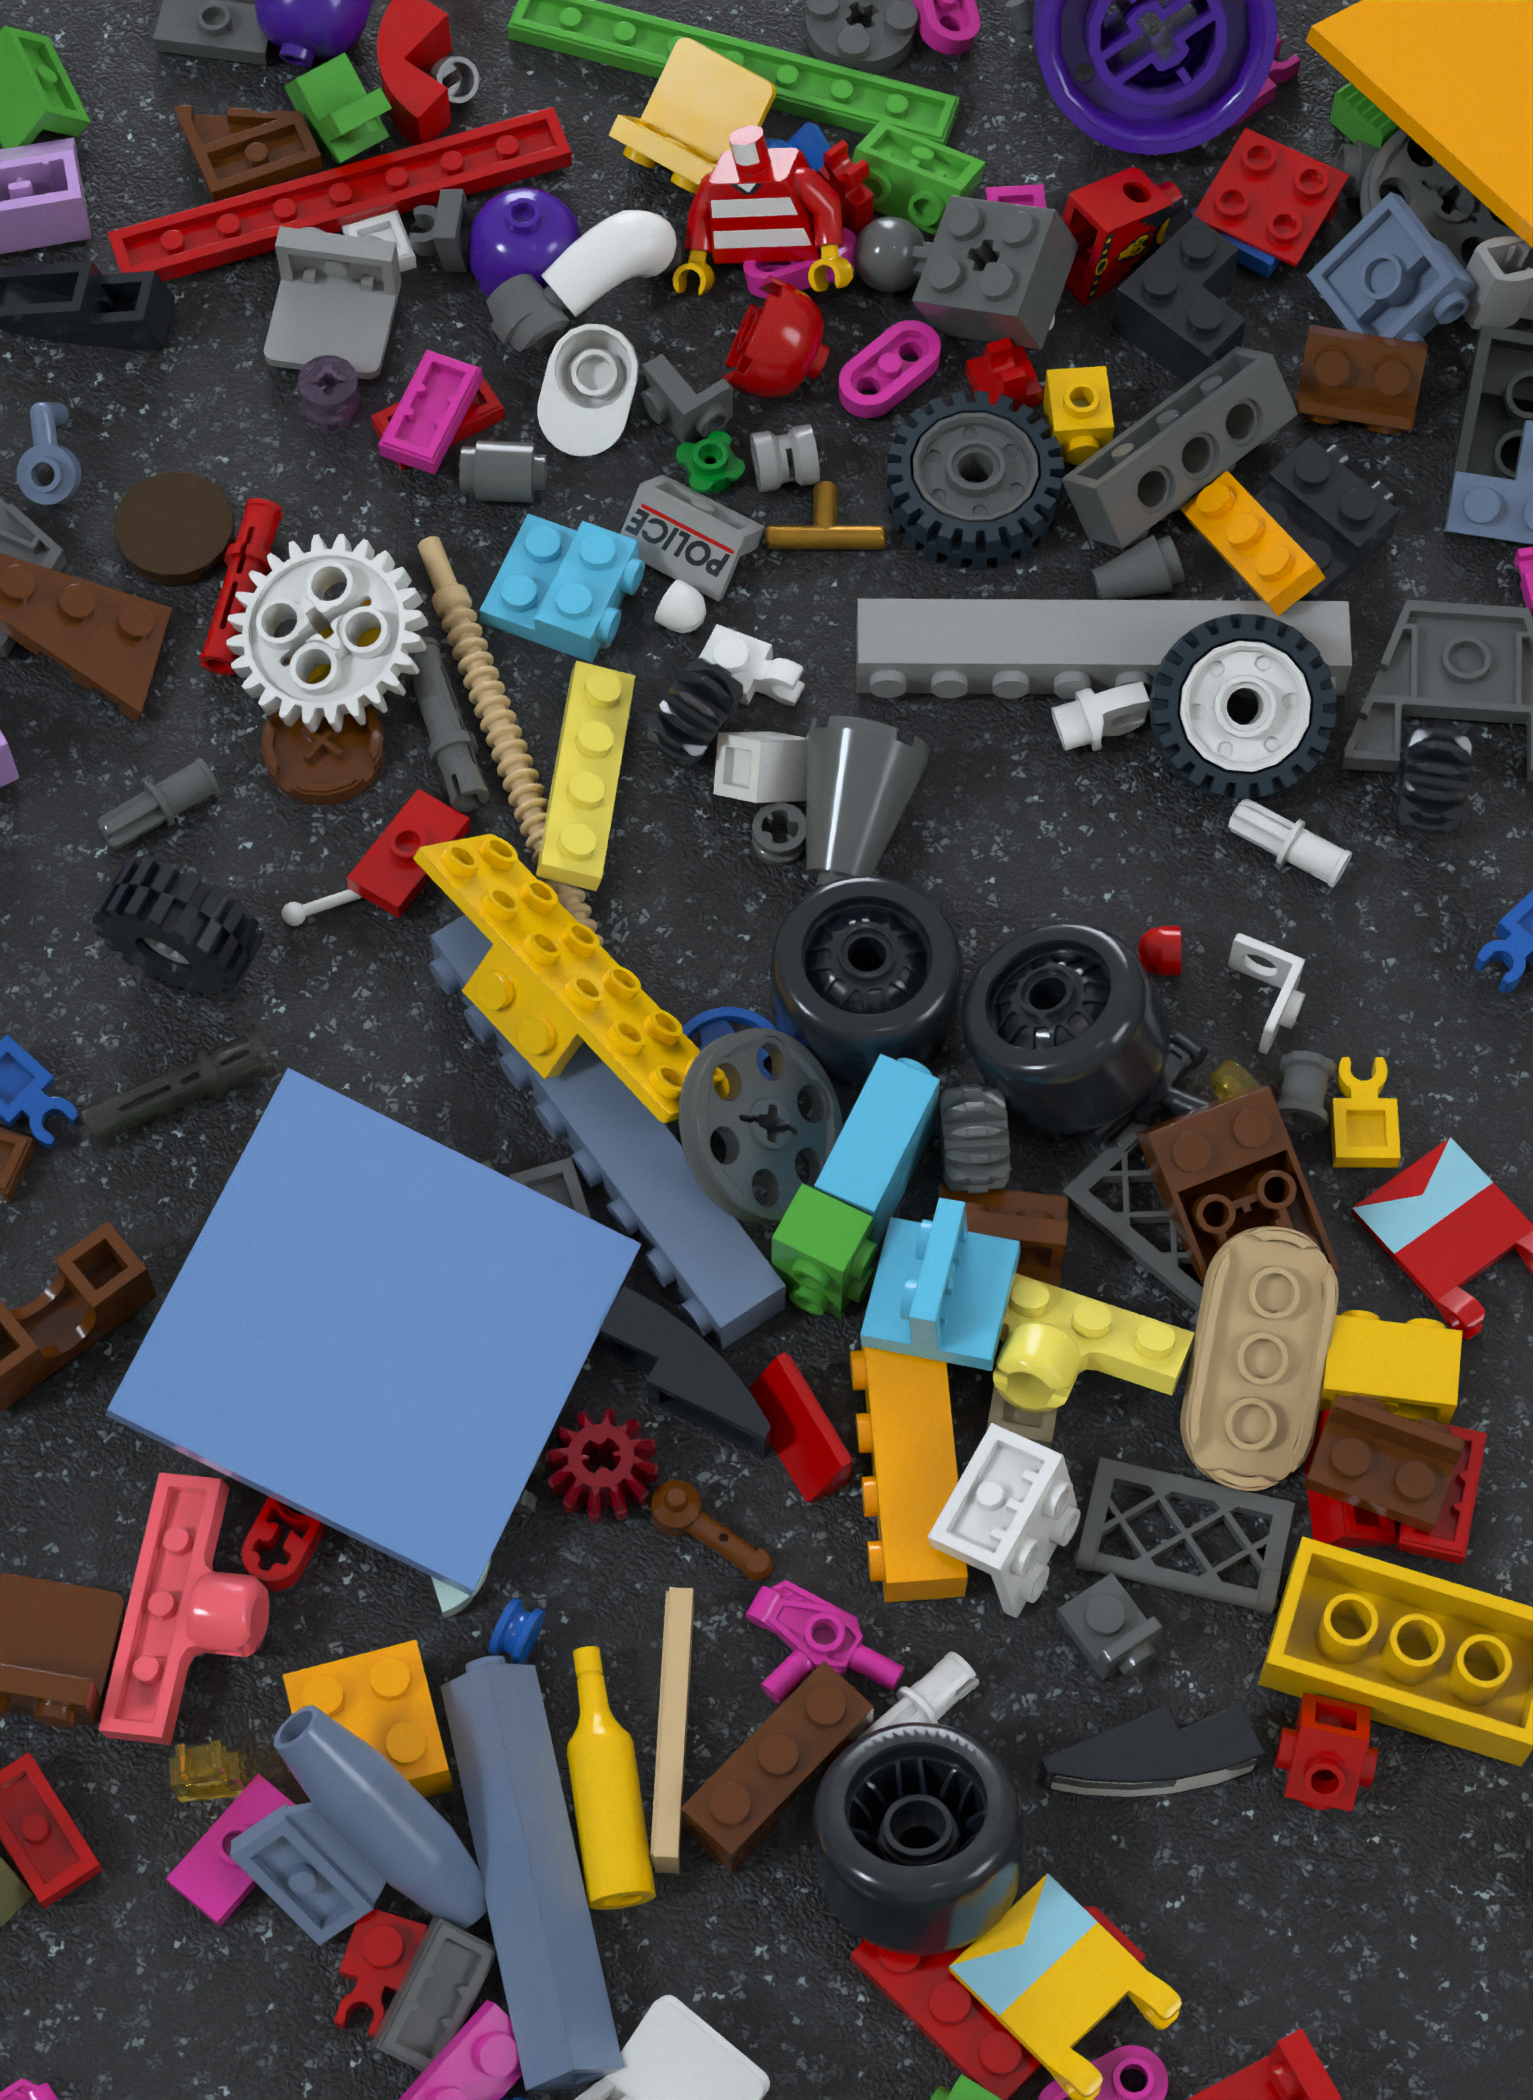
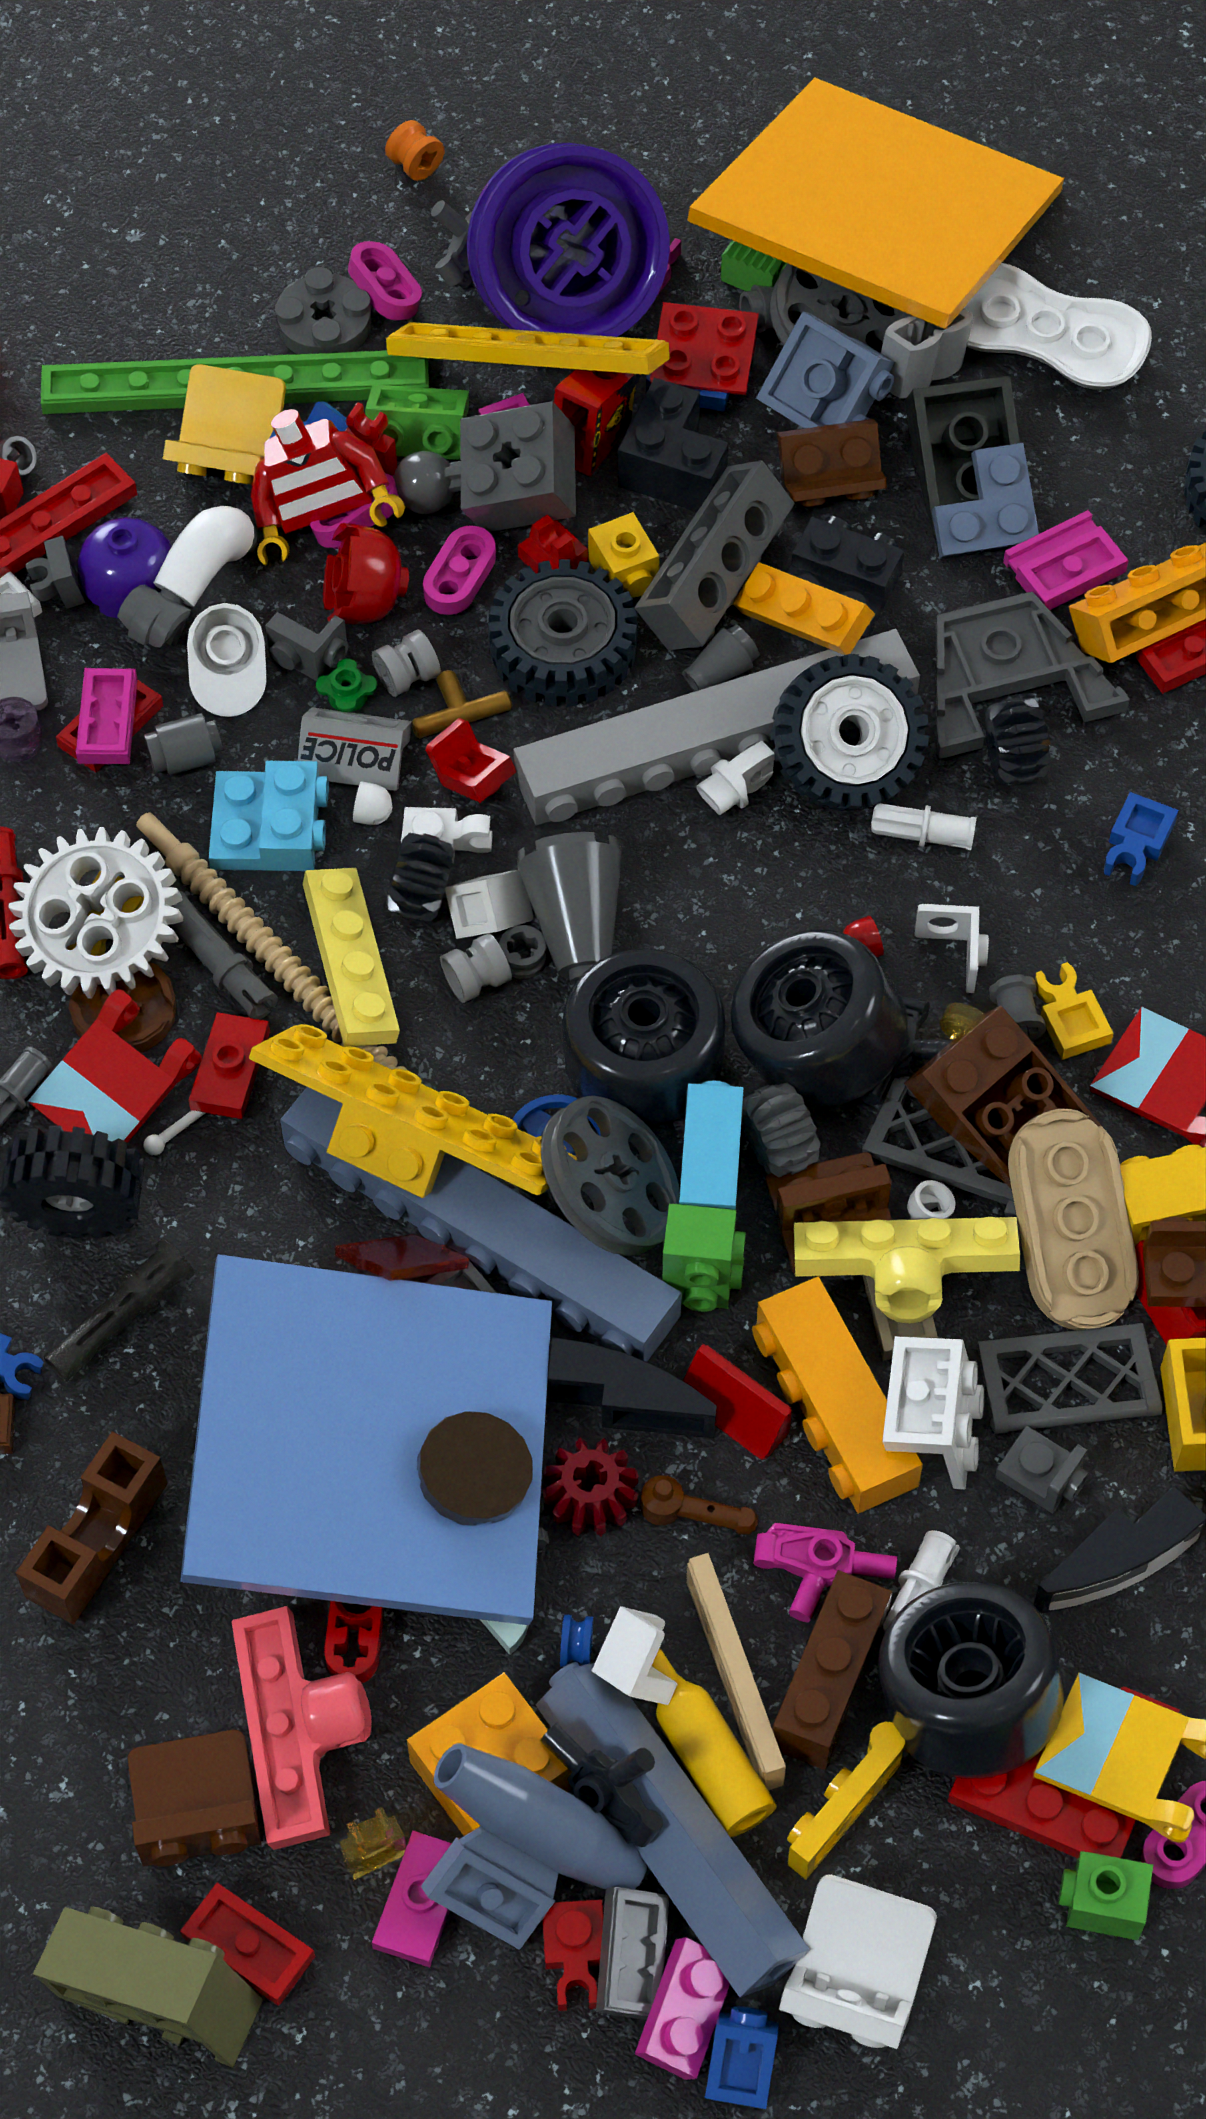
camera: 20 degrees left, 5 degrees down
(268, 830) = (108, 1082): none -> red flag
(471, 1806) = (608, 1786): none -> black piece
(474, 1403) = (474, 1468): none -> dark brown tile
(498, 1136) = (401, 1257): none -> clear red piece
(553, 1675) = (629, 1656): none -> white panel
(718, 835) = (477, 967): none -> light grey wheel
(738, 1915) = (848, 1797): none -> yellow plate
(805, 596) = (467, 764): none -> red bracket
(941, 1290) = (809, 1250): medium azure bracket -> none
(1065, 136) = (528, 348): none -> yellow tile
(1111, 1271) = (928, 1196): none -> white hinge

